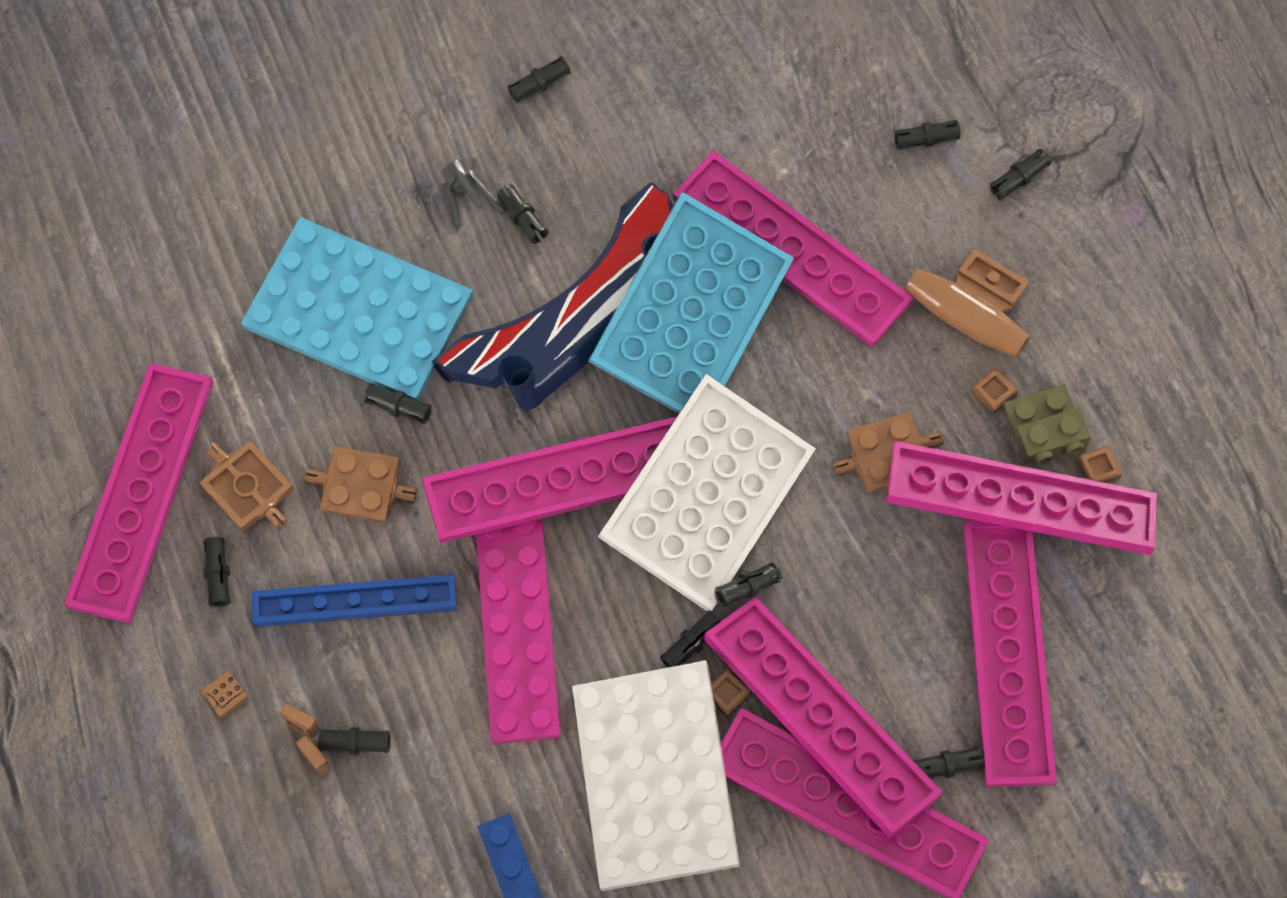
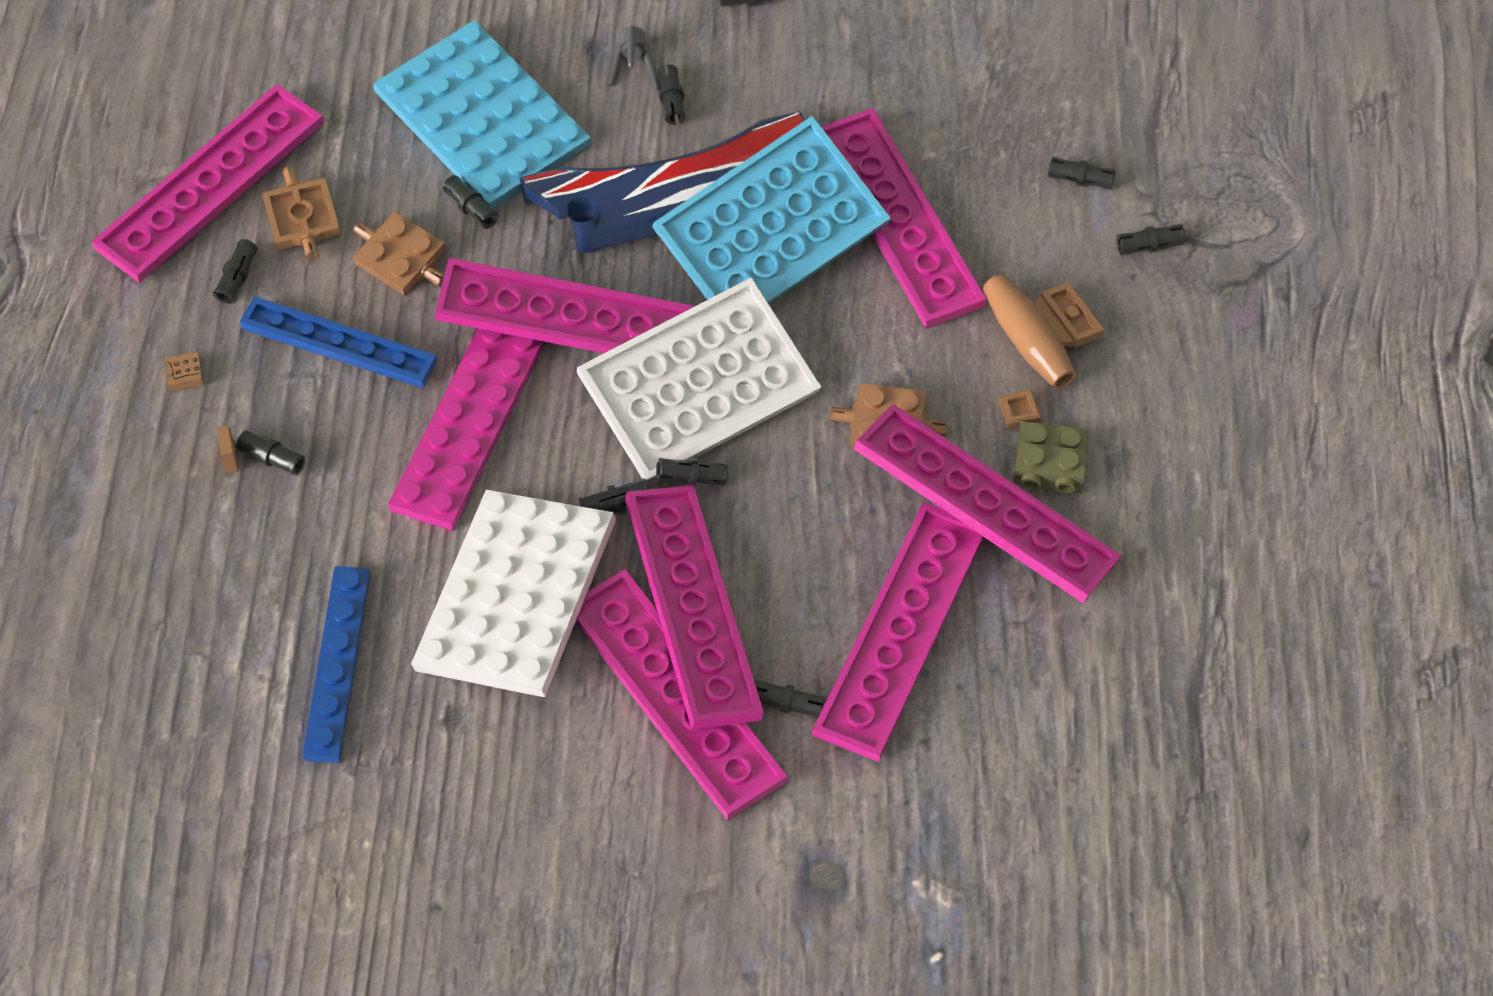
camera: 25 degrees right, 10 degrees down
(299, 721) = (232, 414): medium nougat tile -> none
(729, 692) = (623, 554): medium nougat tile -> none
(1099, 465) = (1083, 512): medium nougat tile -> none

